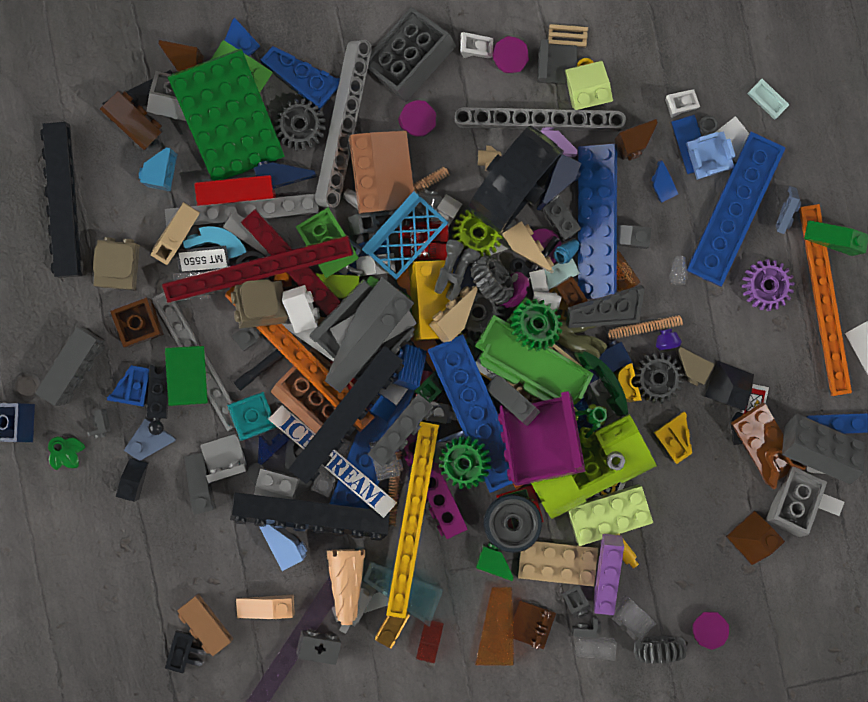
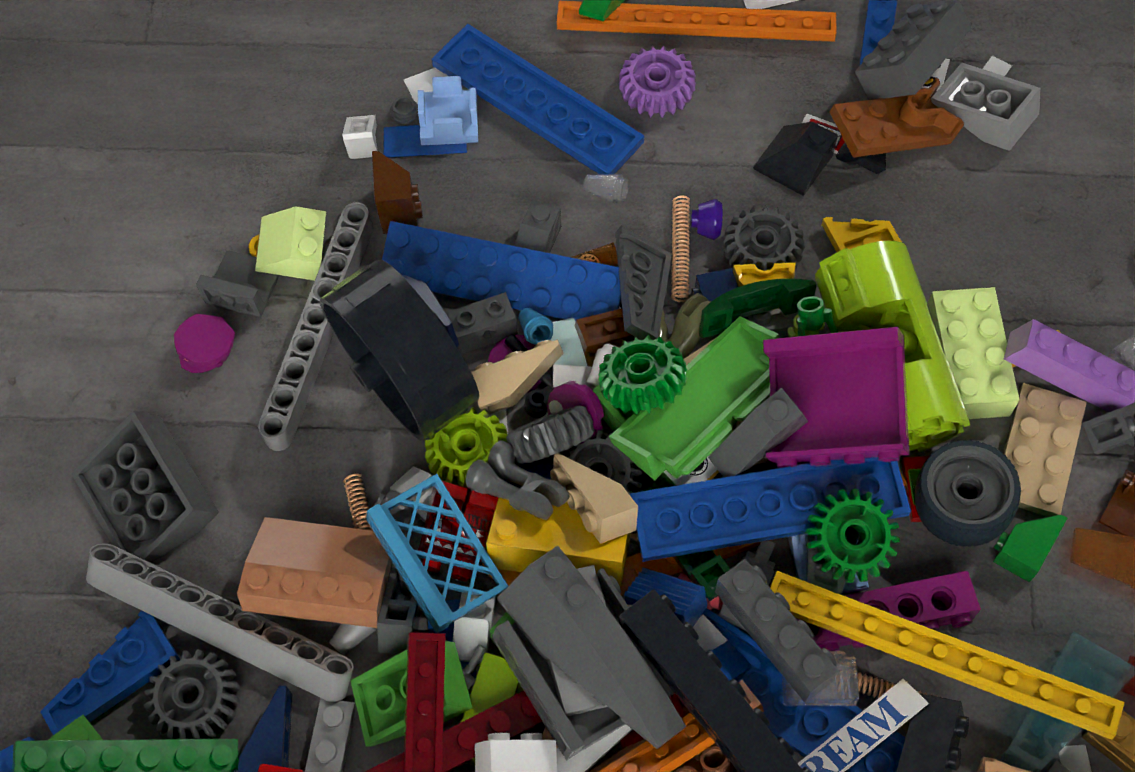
camera: 75 degrees left, 25 degrees down
(417, 118) = (250, 499): magenta hat -> none
(476, 45) = (168, 387): white slope -> none
(487, 156) = (352, 409): tan piece -> none
(568, 35) = (203, 256): tan tile -> none
(611, 456) = (896, 280): light grey axle -> none
(663, 183) = (470, 180): blue slope -> none
(694, 366) = (756, 189): dark tan slope -> none
(755, 538) = (1034, 166): reddish brown slope -> none
(768, 99) = (393, 35): light aqua tile -> none
(792, 205) = (557, 35): sand blue wing -> none

